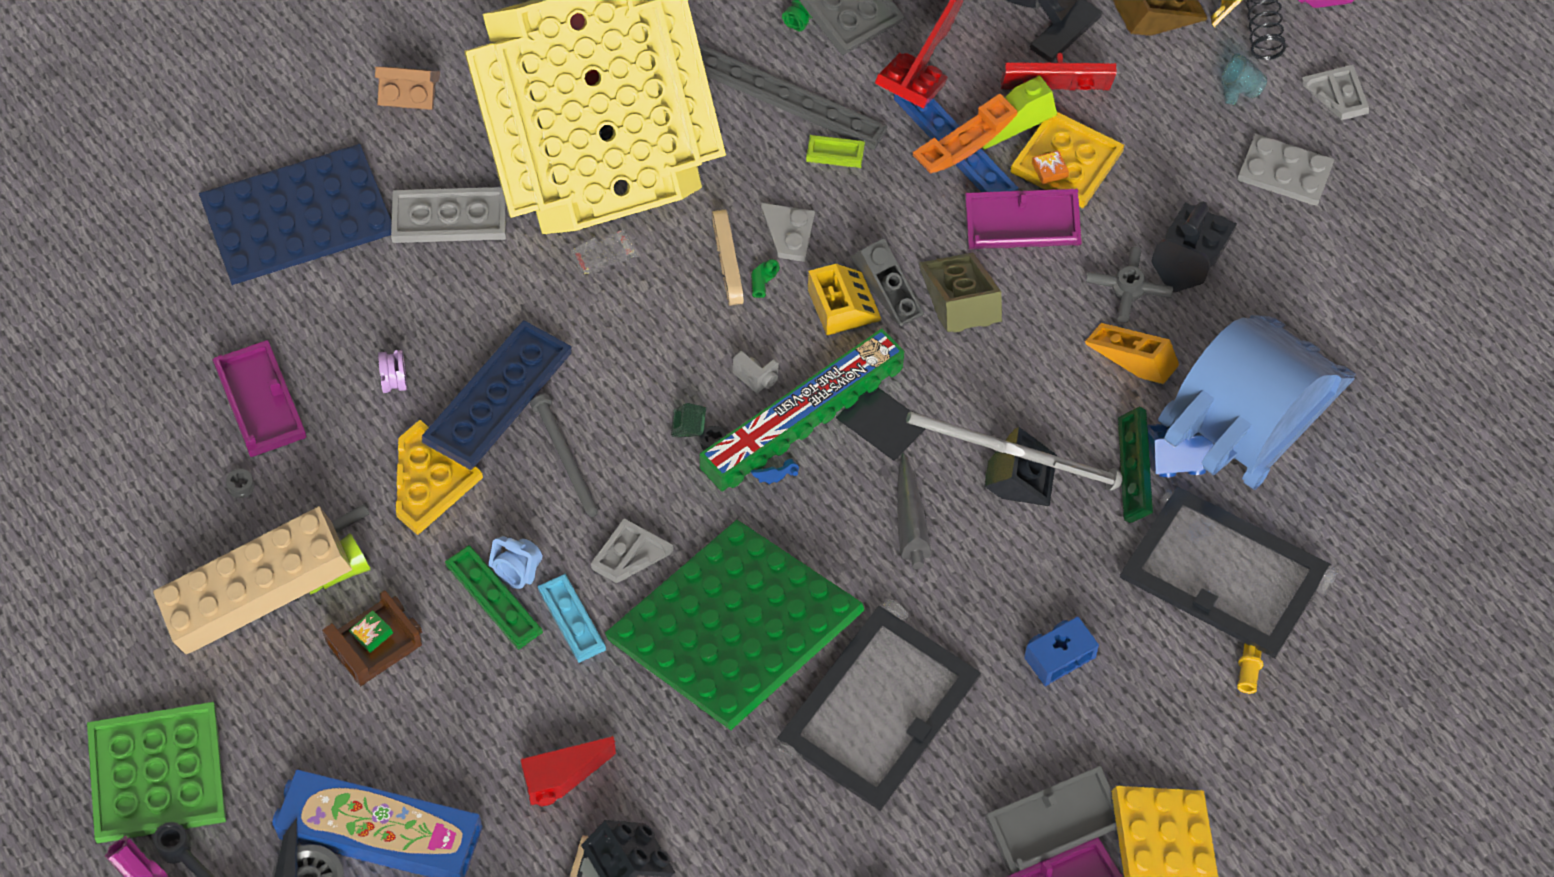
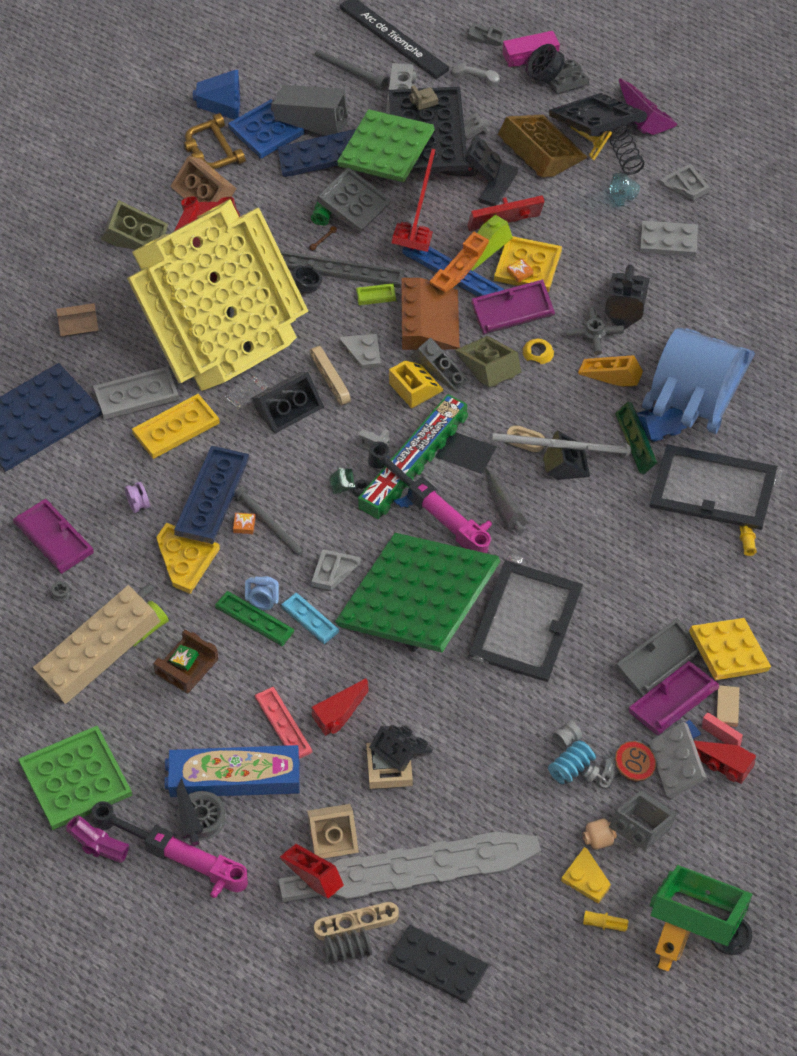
camera: 15 degrees left, 5 degrees down
(477, 768) = (282, 721): none -> coral tile
(486, 278) = (175, 426): none -> yellow plate
(530, 448) = (244, 523): none -> orange tile
(654, 282) = (288, 401): none -> black slope
(743, 112) = (307, 283): none -> black helmet
(762, 275) = (356, 382): green arm -> none
(795, 477) = (424, 495): none -> piece
(808, 40) = (333, 229): none -> reddish brown hinge
(897, 202) = (428, 314): none -> dark orange slope
(976, 419) = (521, 431): none -> tan plate
(1044, 306) = (544, 357): none -> yellow piece
(1055, 663) = (628, 558): blue brick -> none

